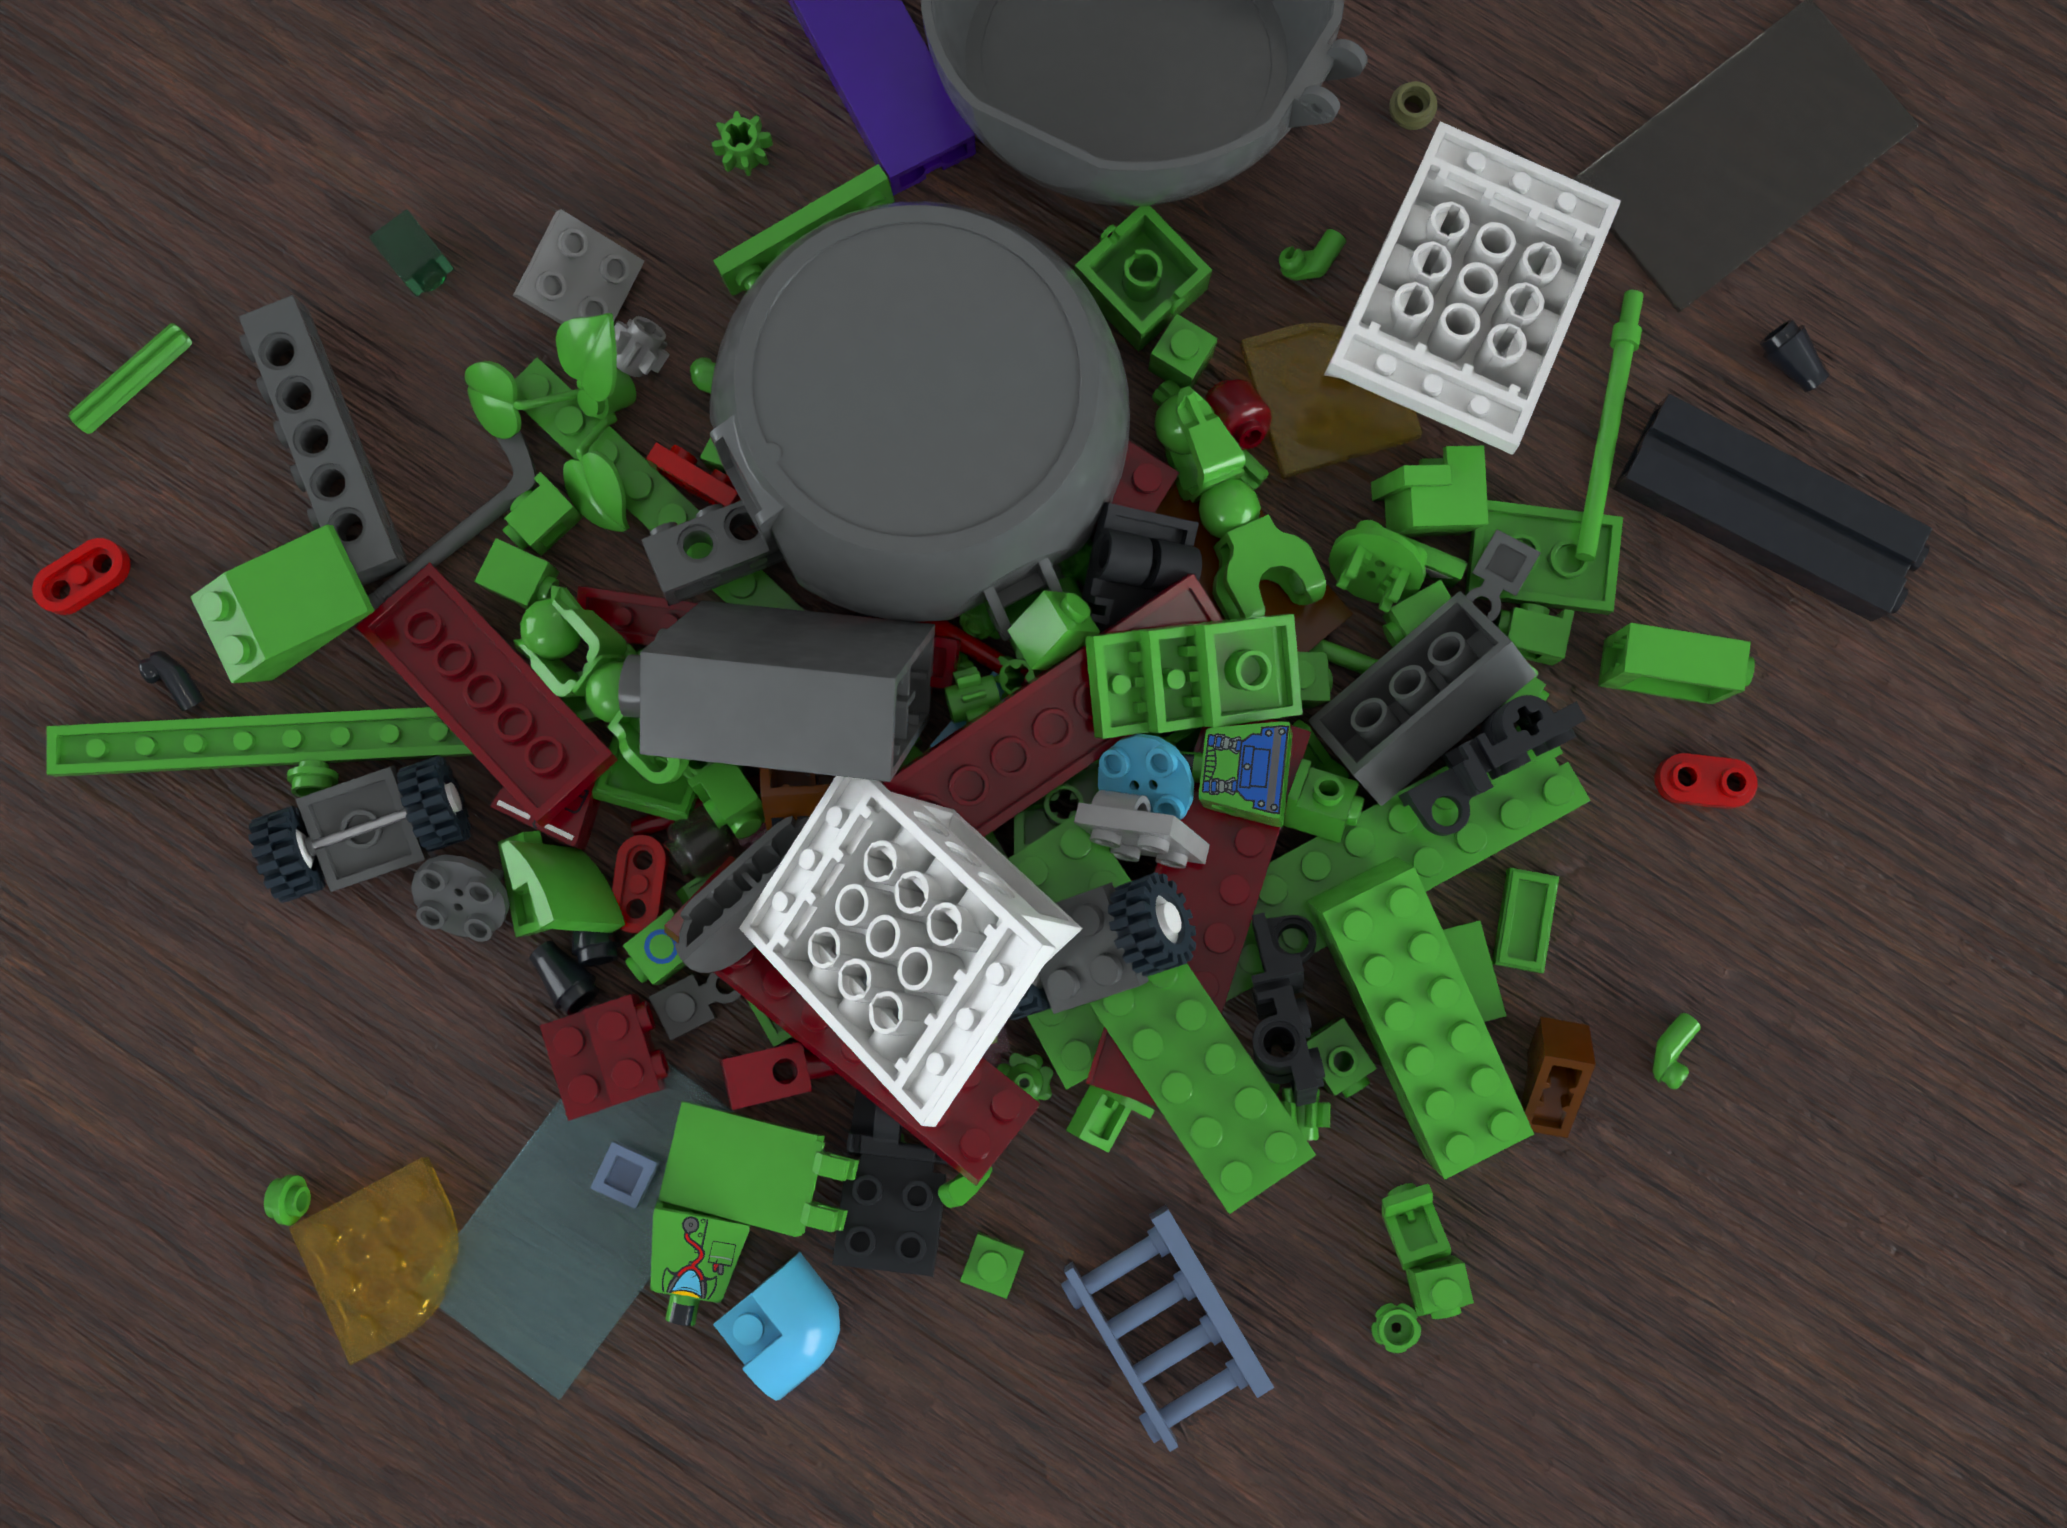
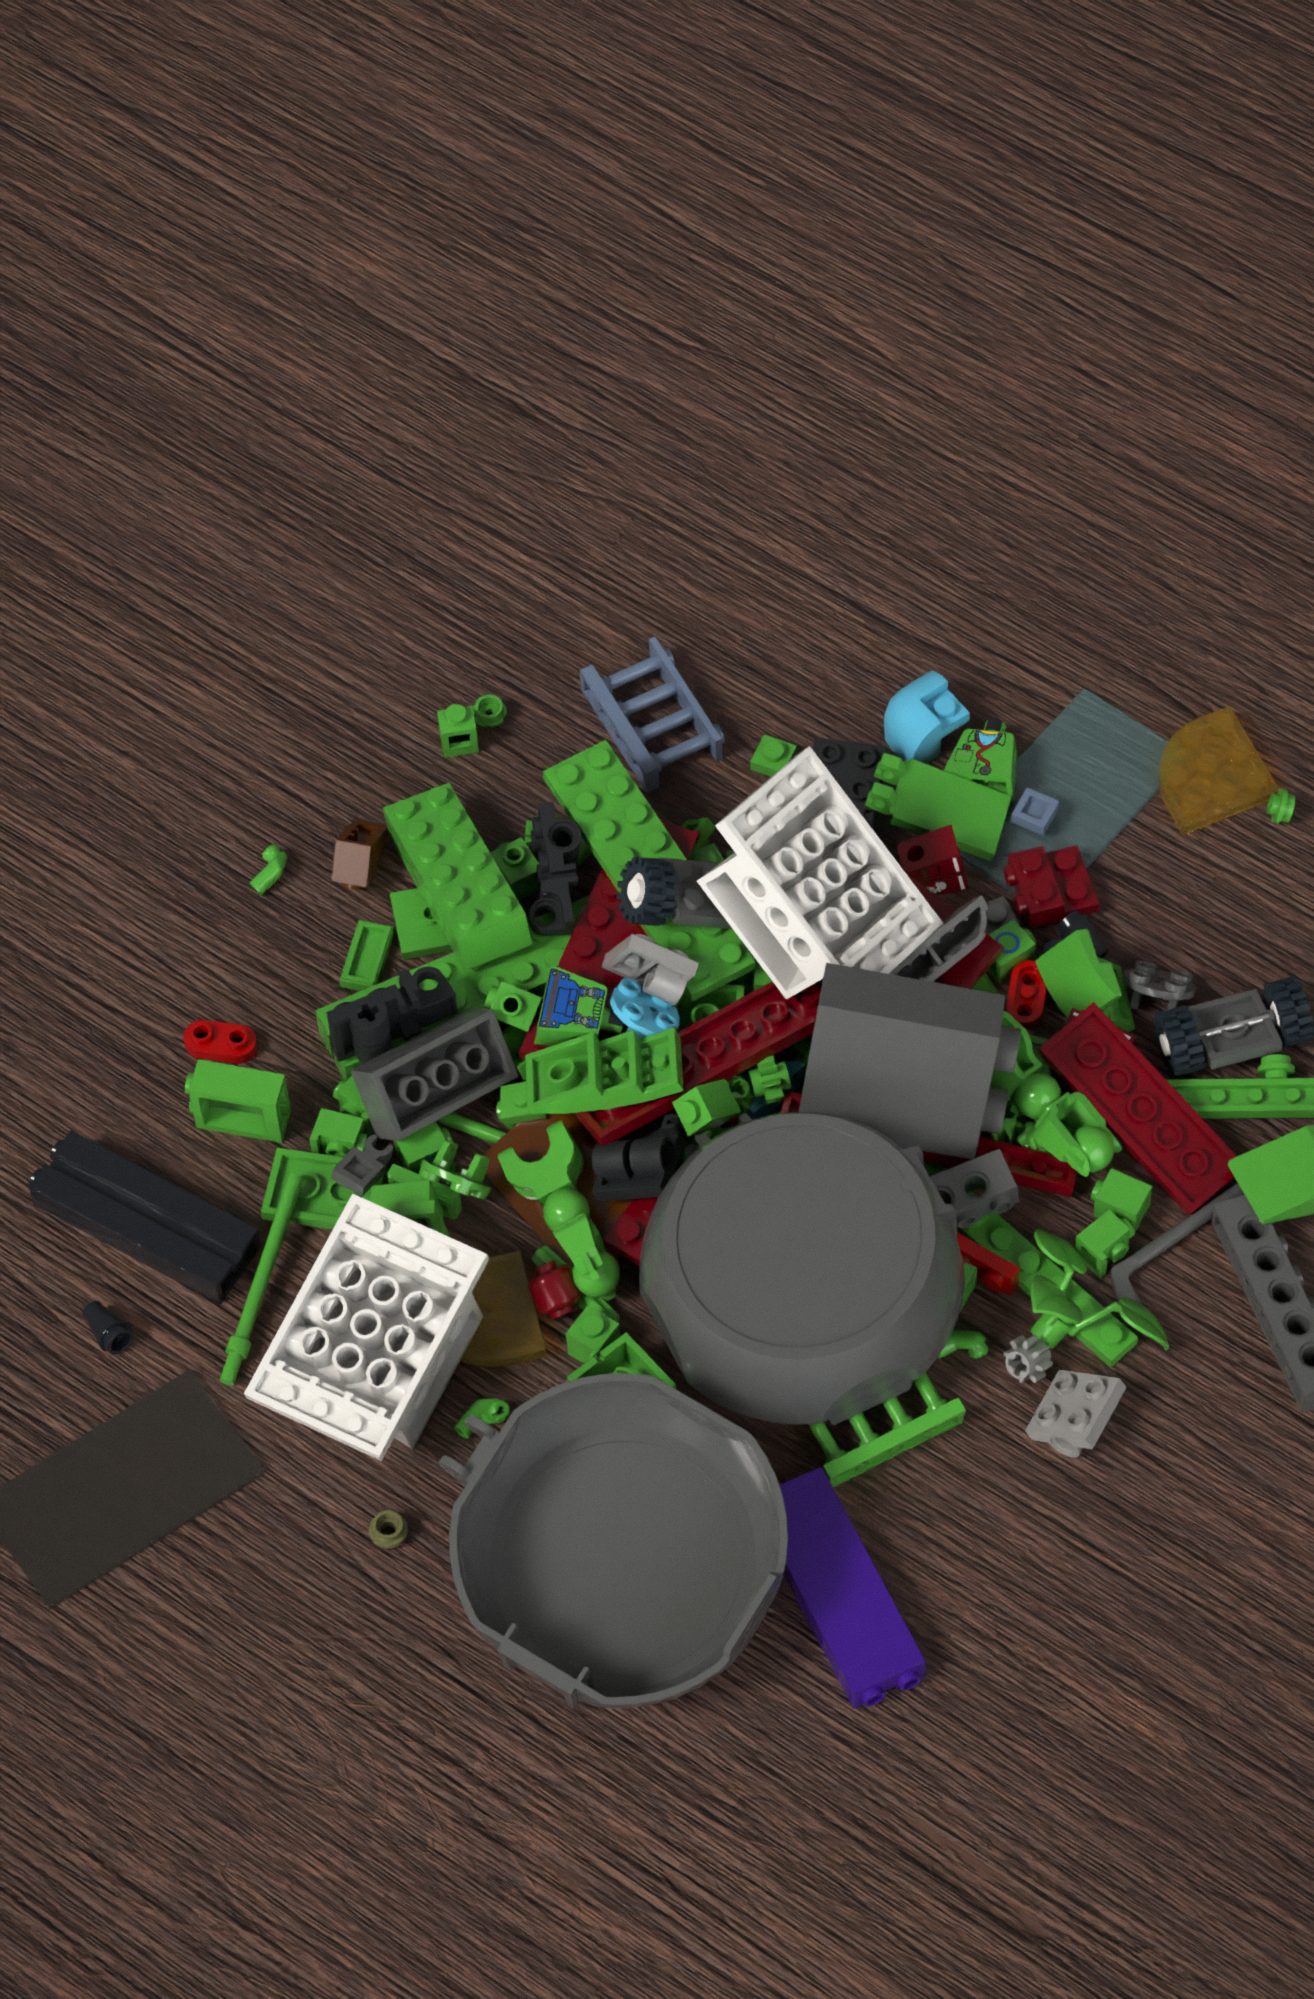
camera: 175 degrees left, 25 degrees down
(412, 253) = (1213, 1437): clear green brick -> none
(741, 131) = (943, 1513): bright green gear -> none
(1414, 1225) = (470, 766): bright green bracket -> none

